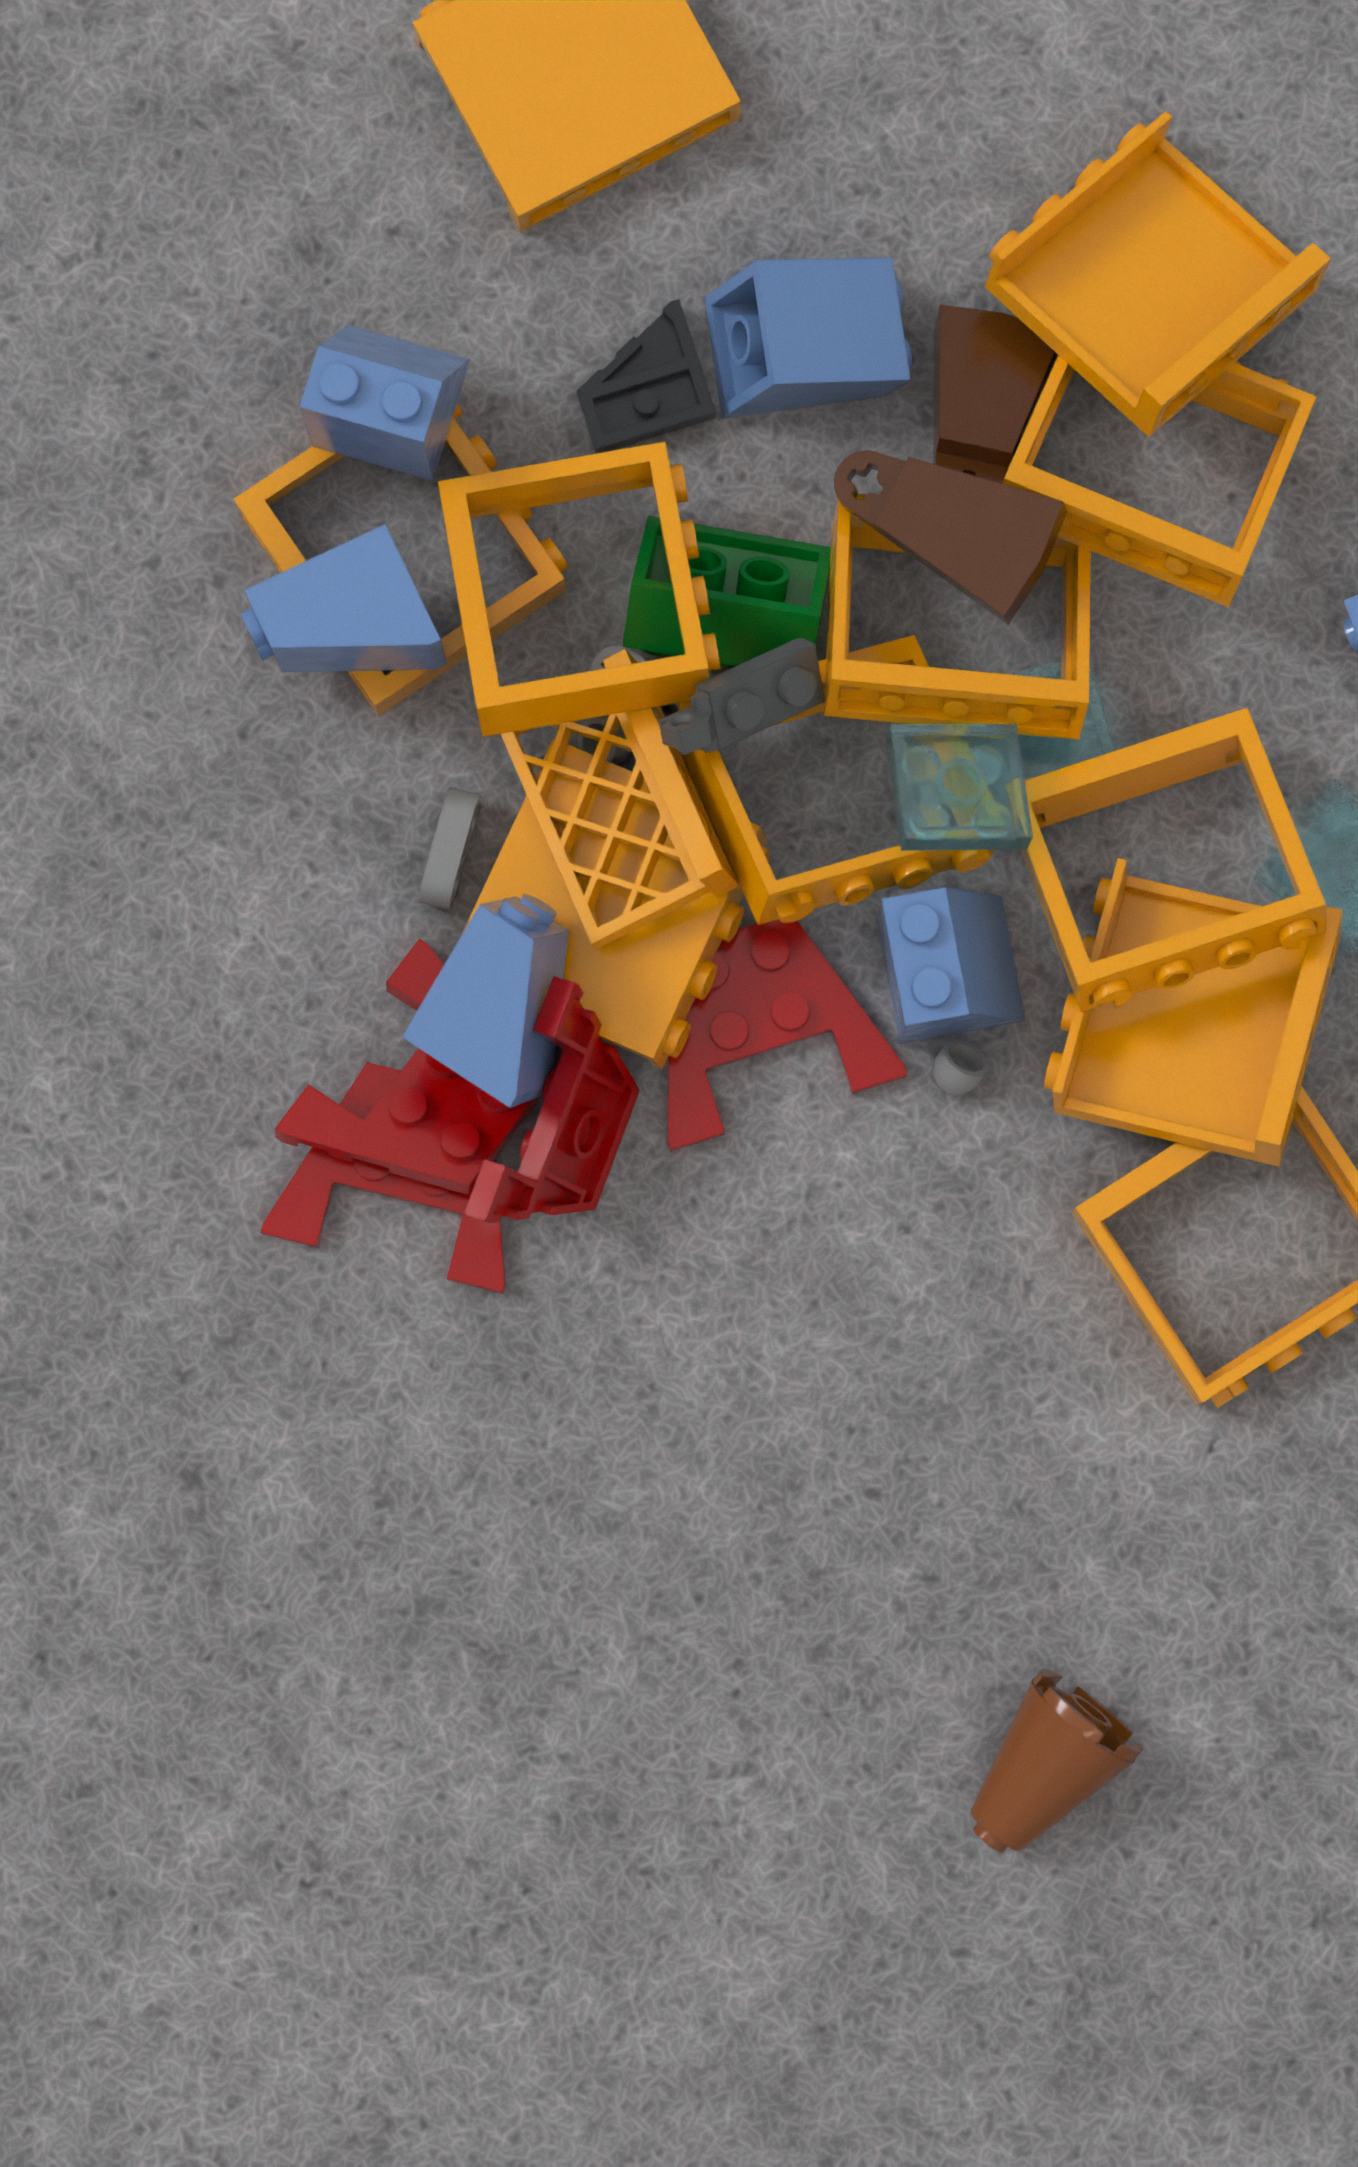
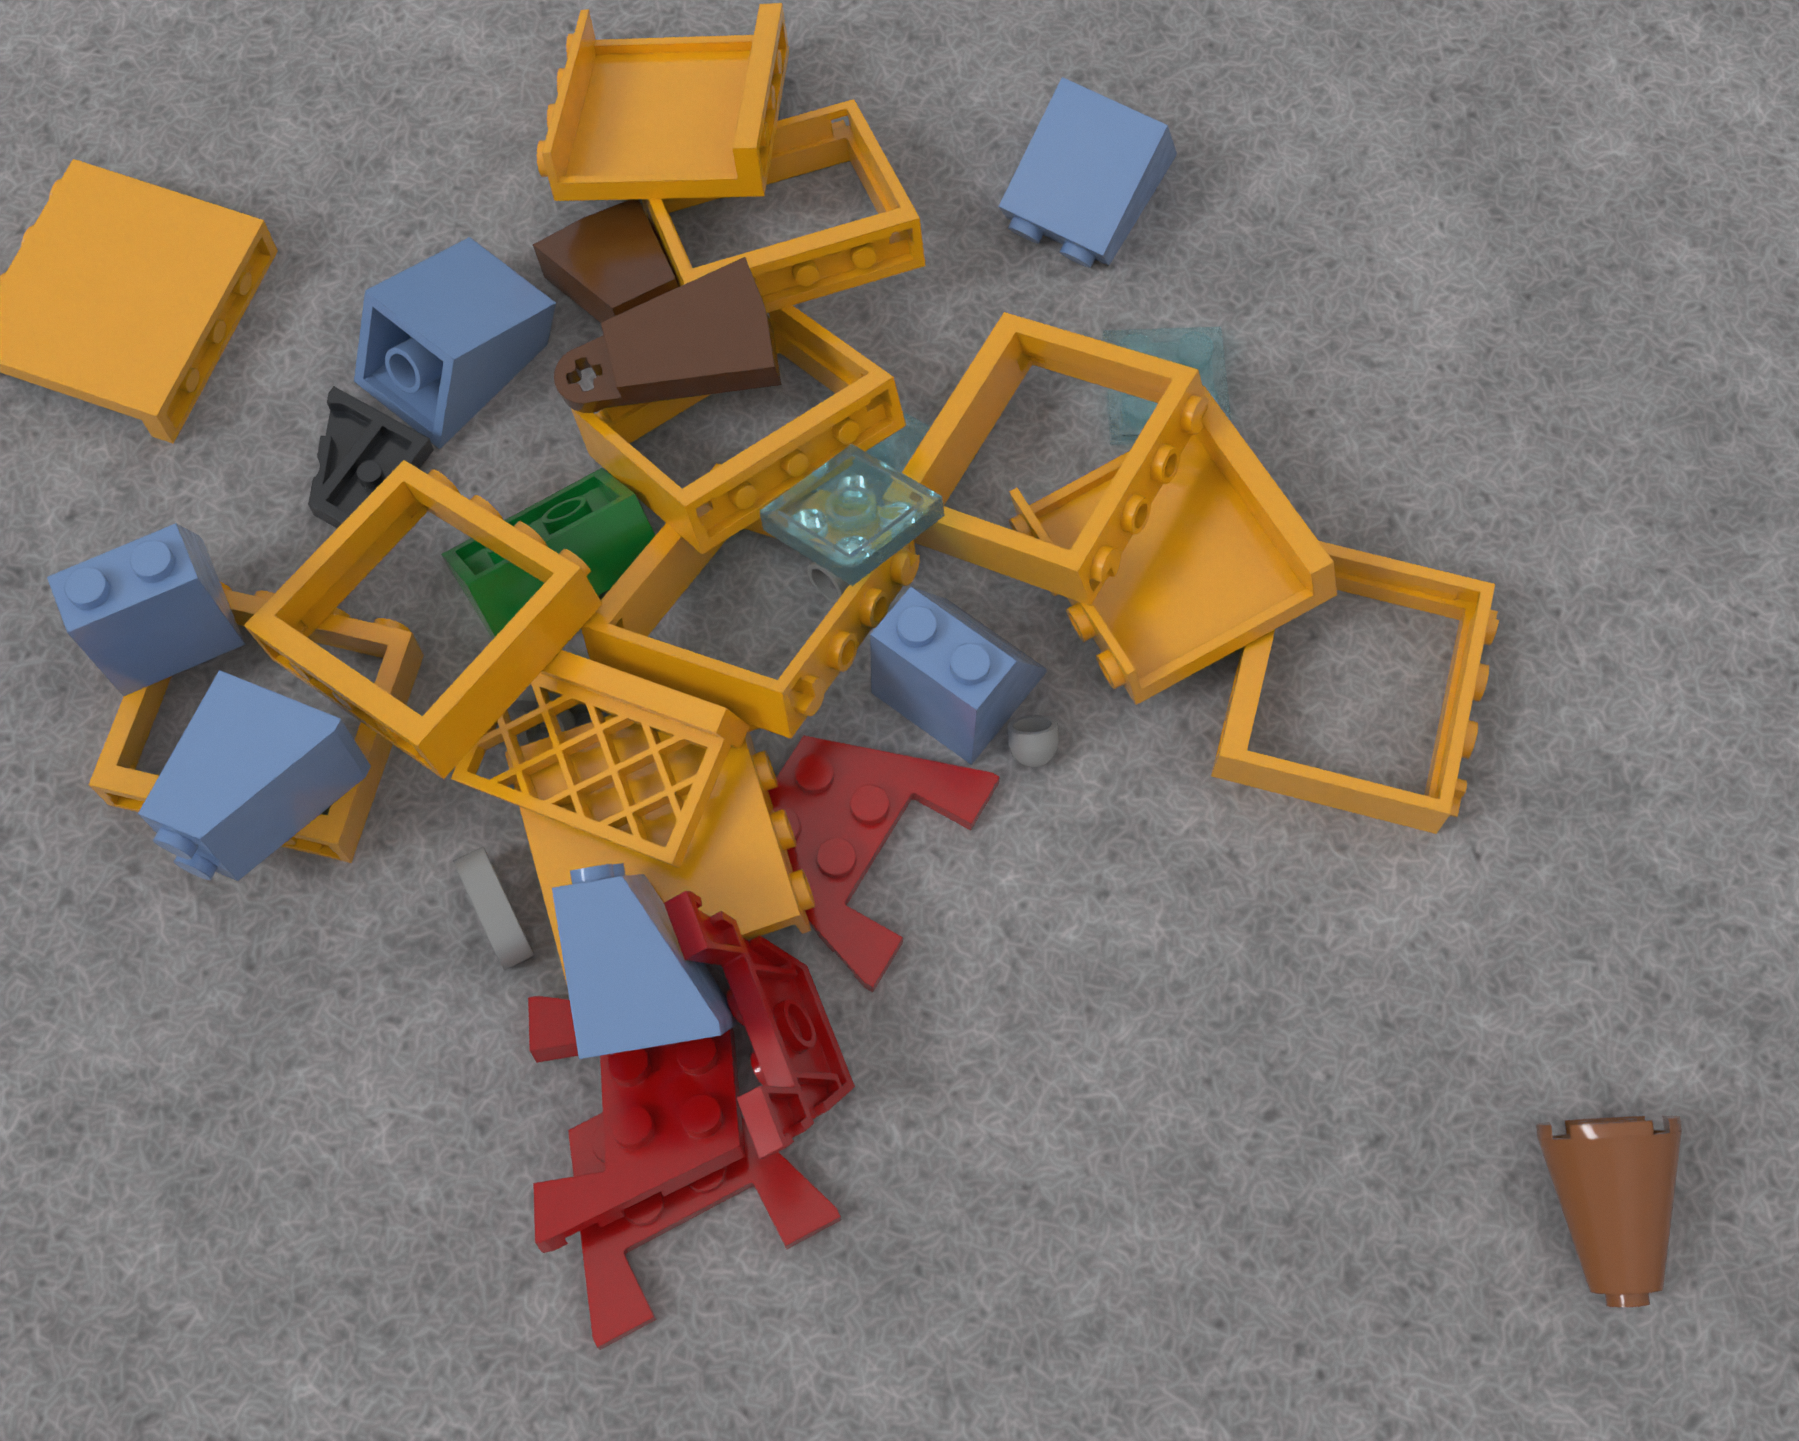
camera: 45 degrees left, 15 degrees down
(747, 699) = (632, 577): dark grey hinge -> none

